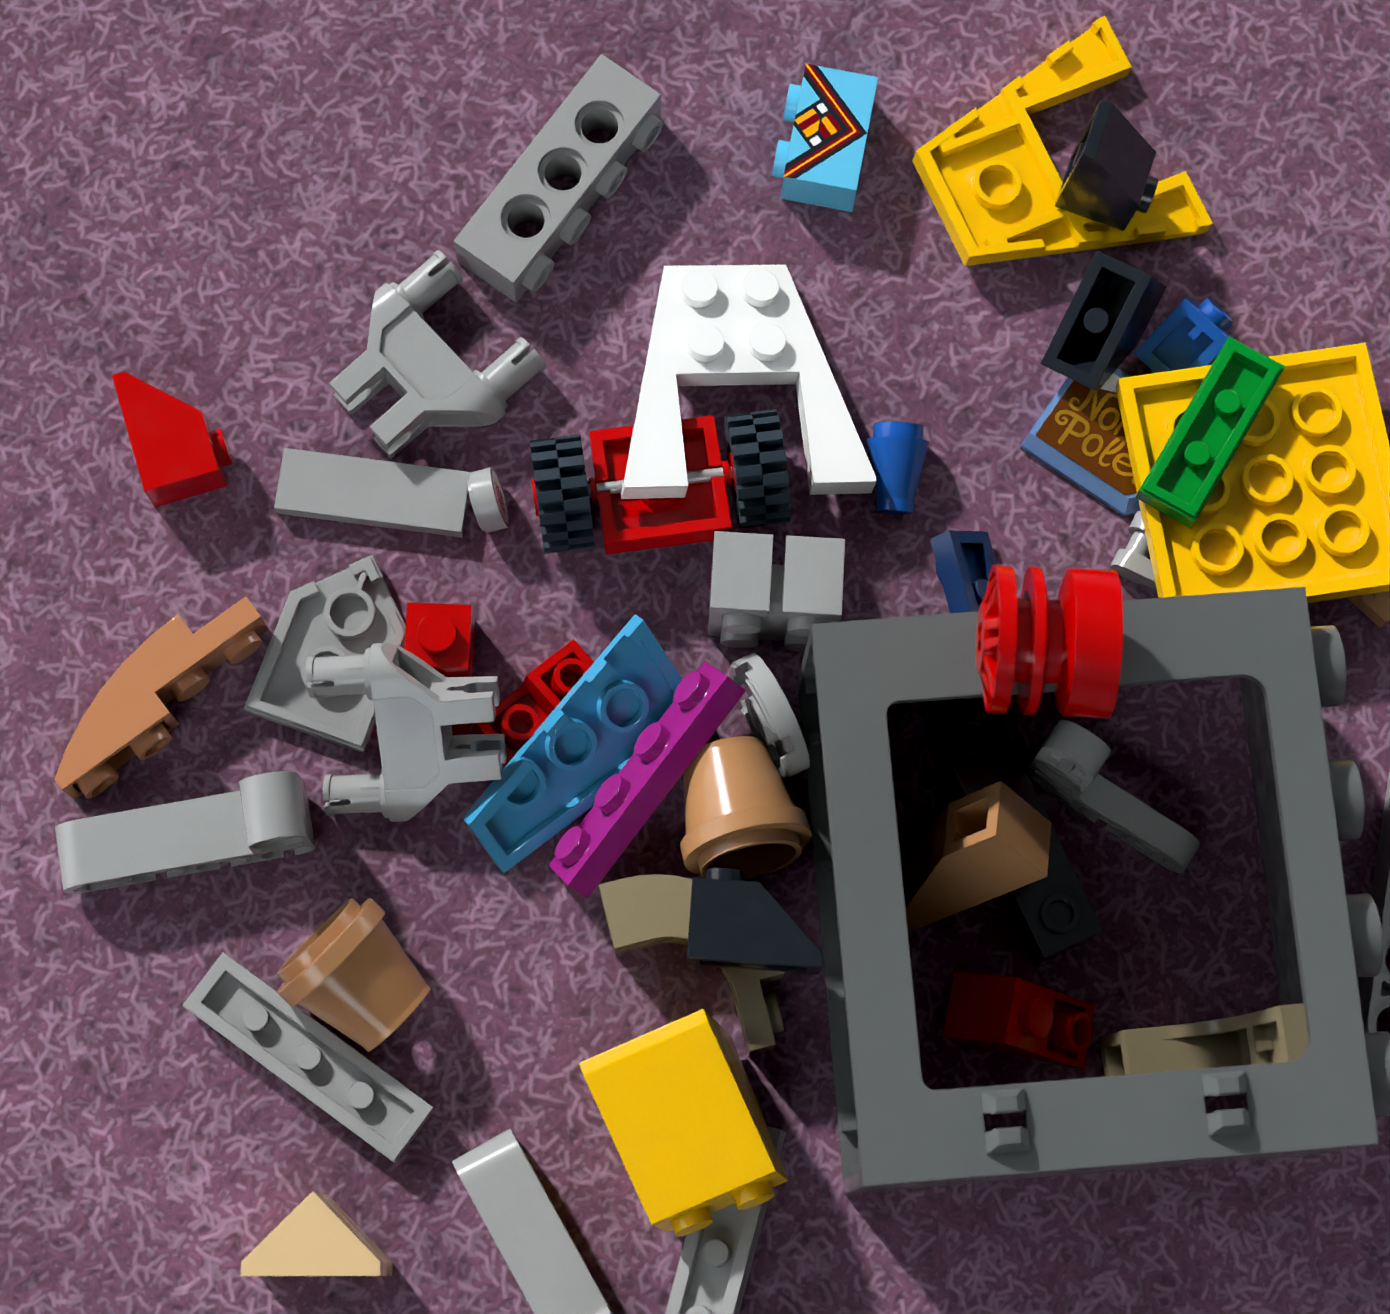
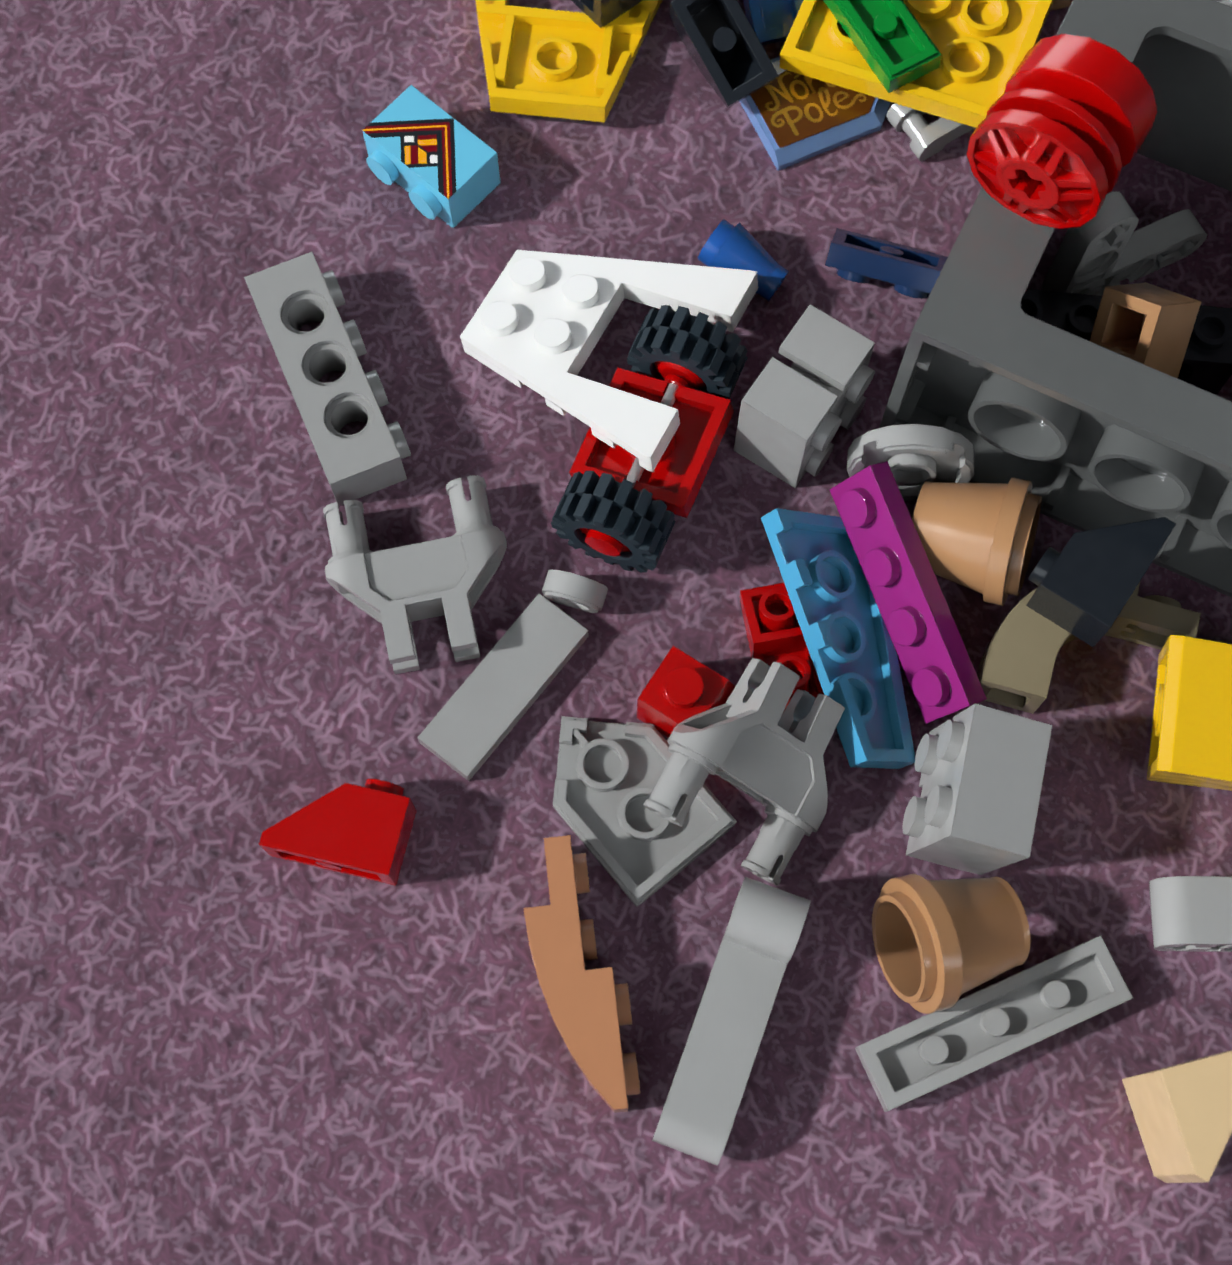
camera: 55 degrees left, 5 degrees down
(489, 929) = (977, 790): none -> light grey piece

